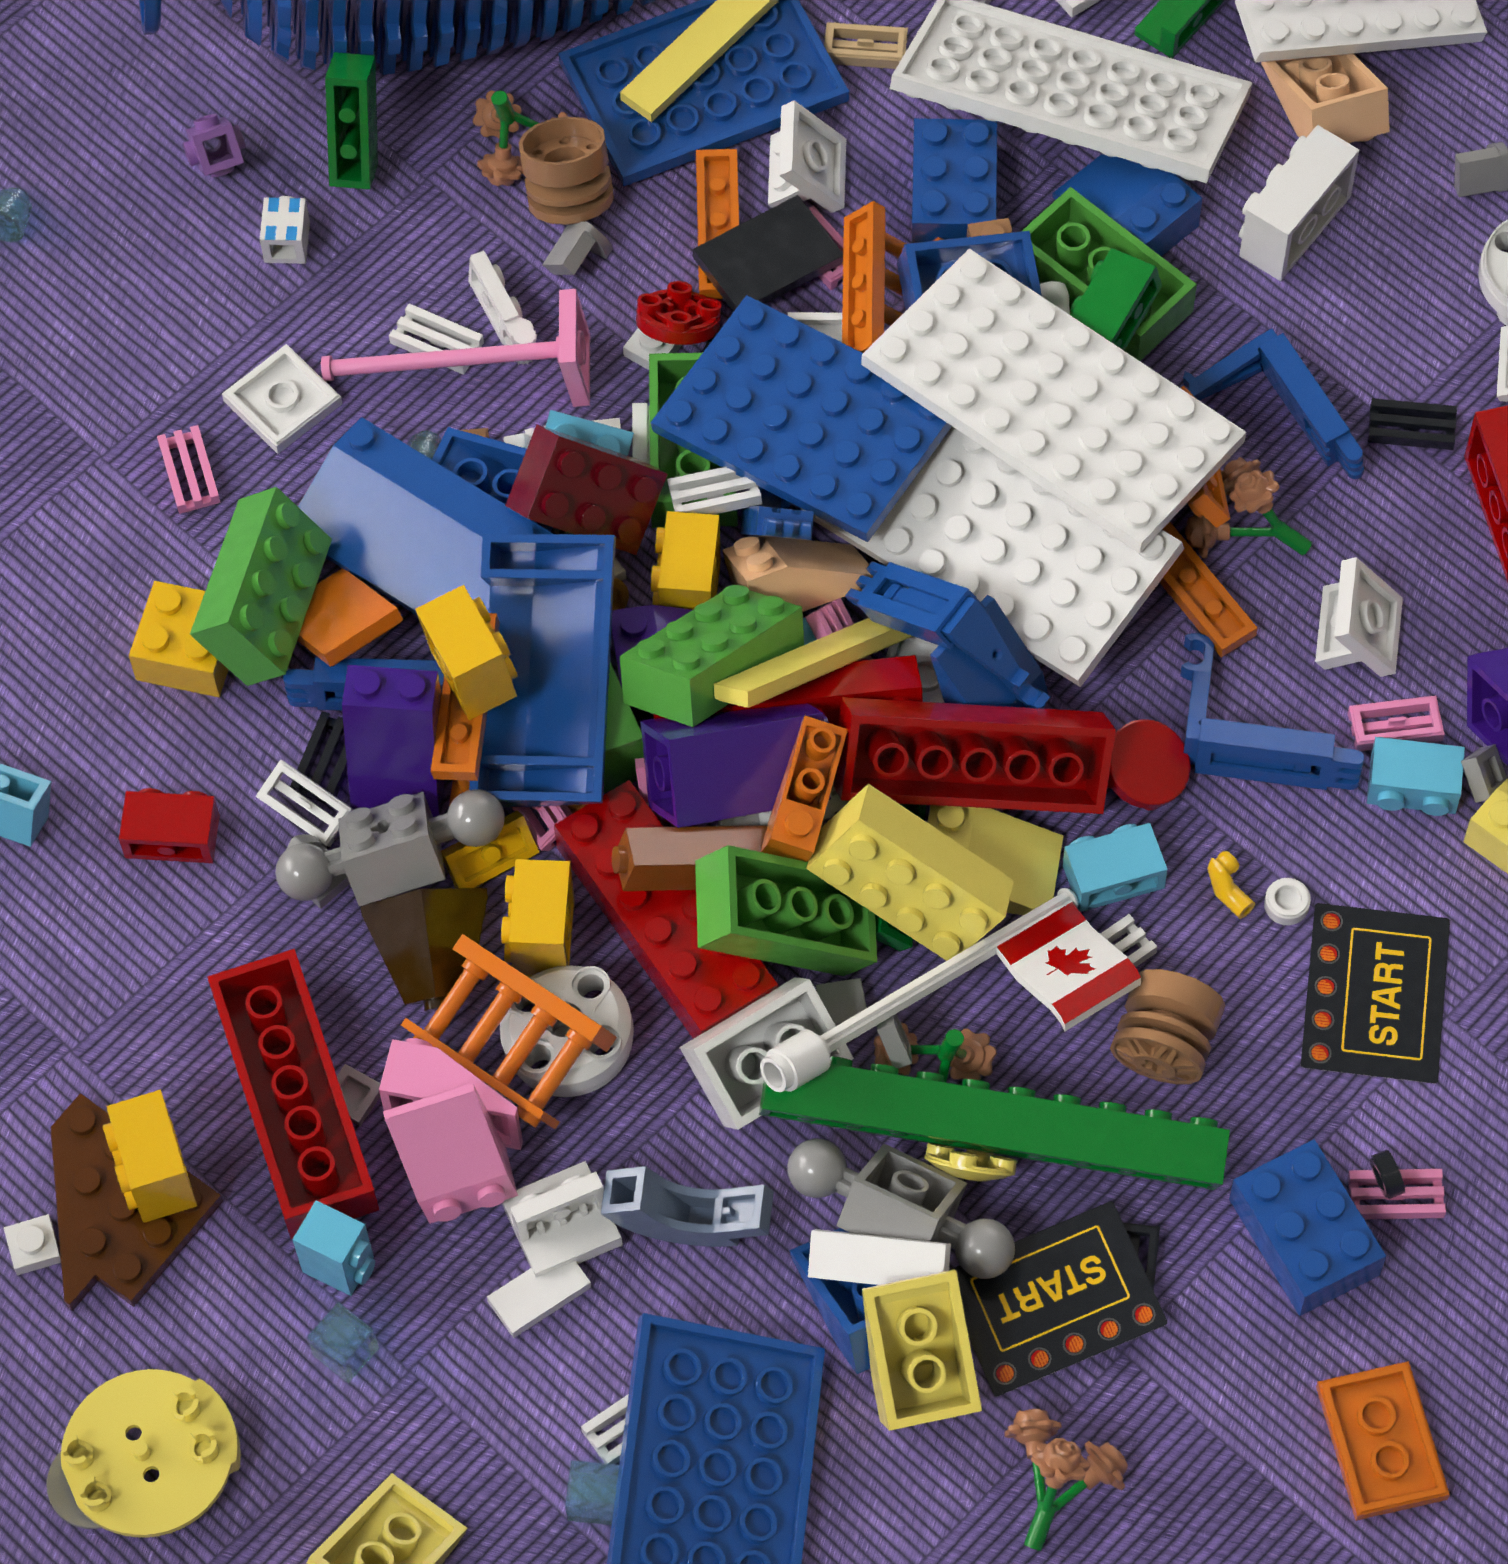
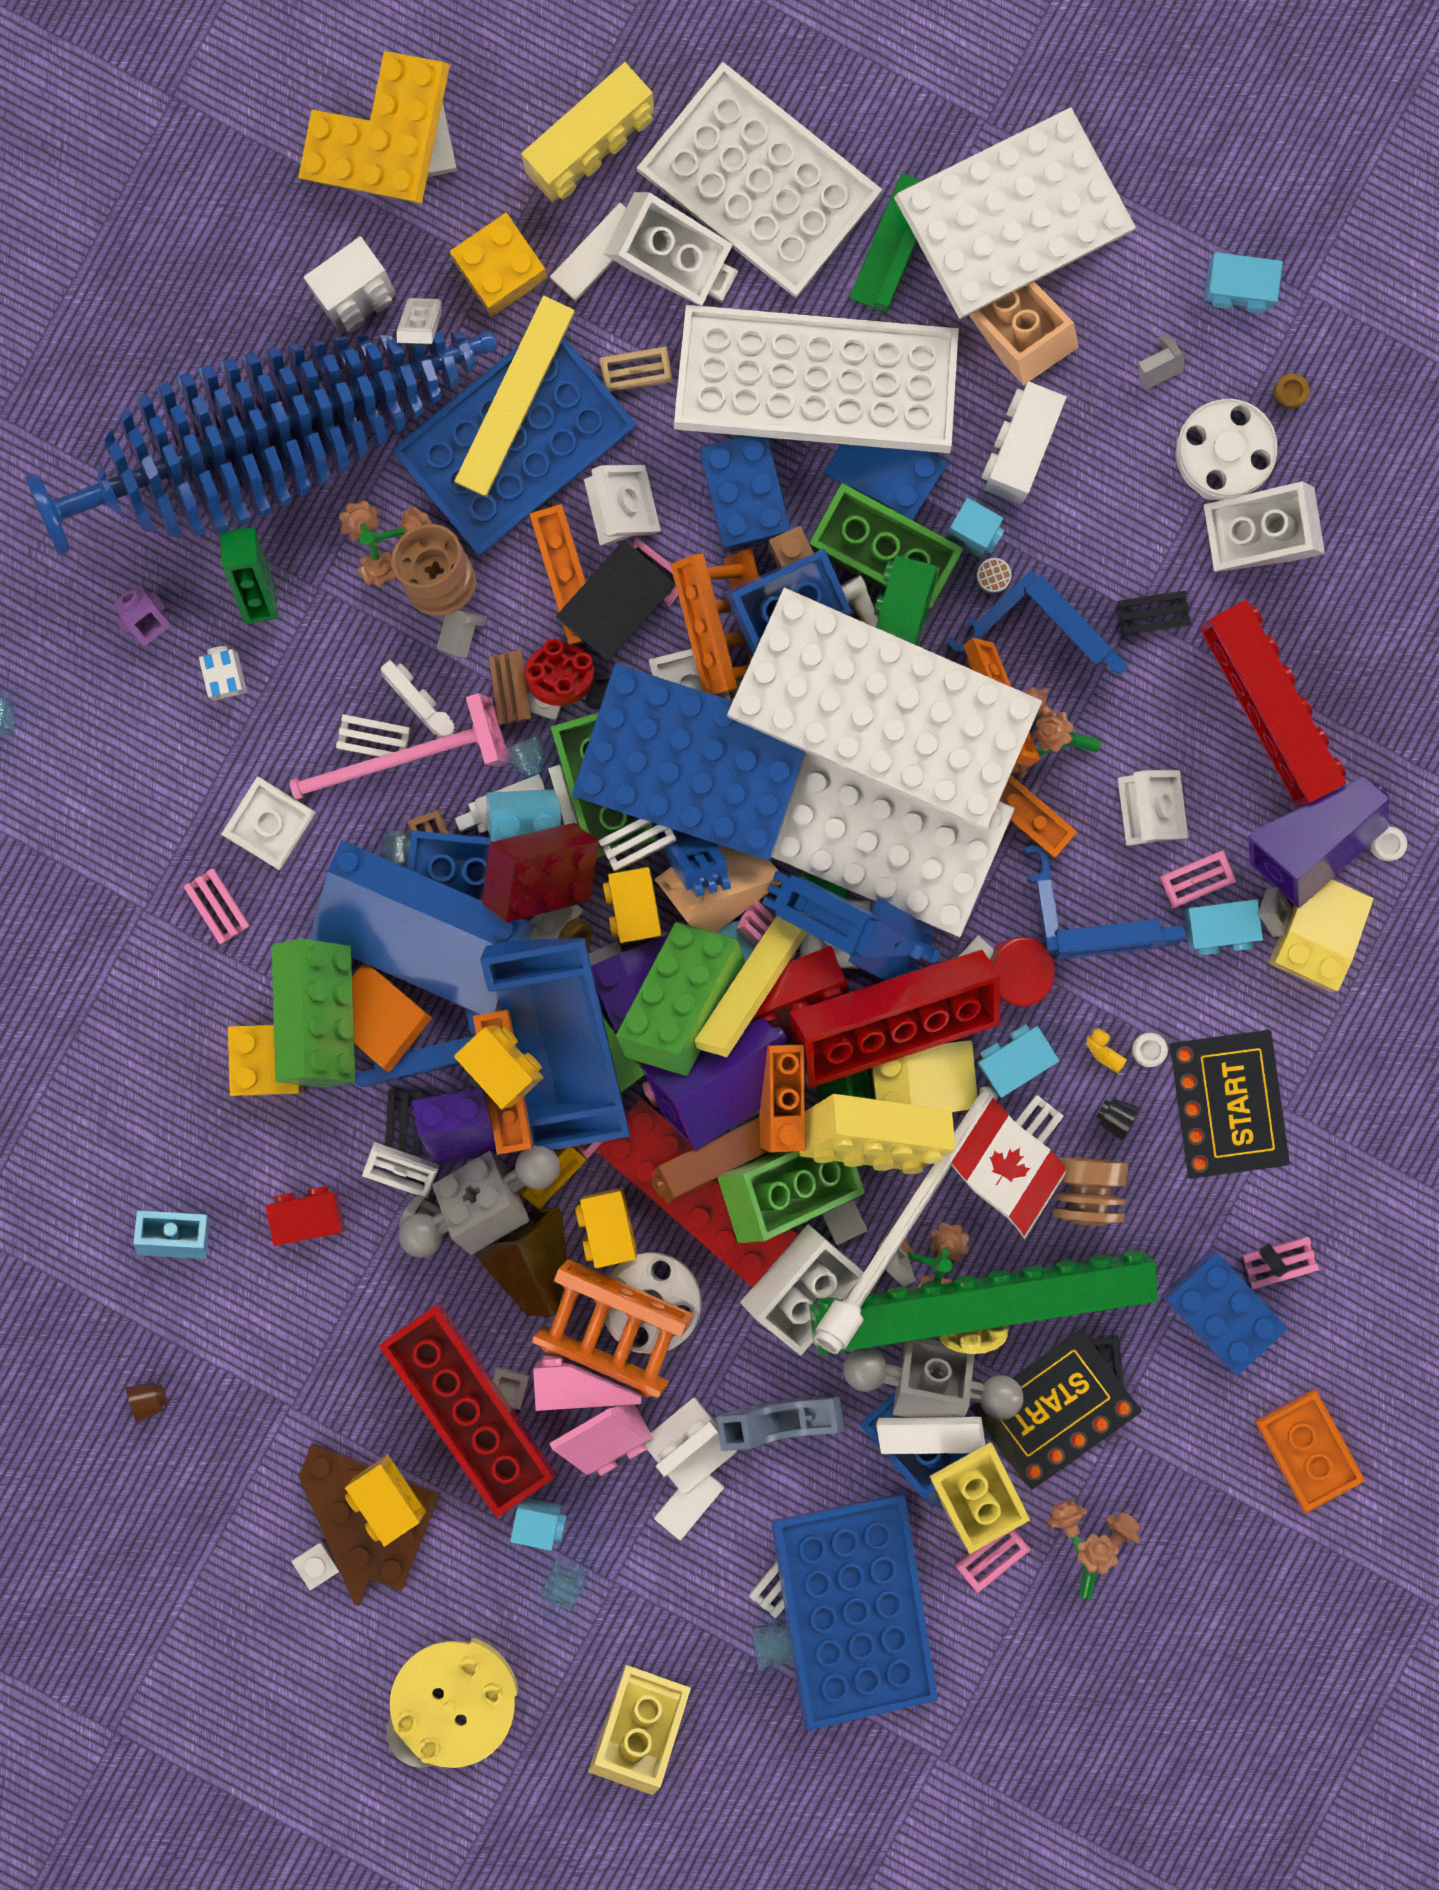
camera: 15 degrees left, 25 degrees up
(611, 391) = (527, 756): none -> clear light blue hat
(614, 321) = (505, 688): none -> medium nougat tile
(927, 1482) = (1000, 1568): none -> bright pink tile
(1220, 271) = (976, 529): none -> medium azure brick
(1225, 338) = (993, 575): none -> tile
(1227, 963) = (1117, 1117): none -> black hat

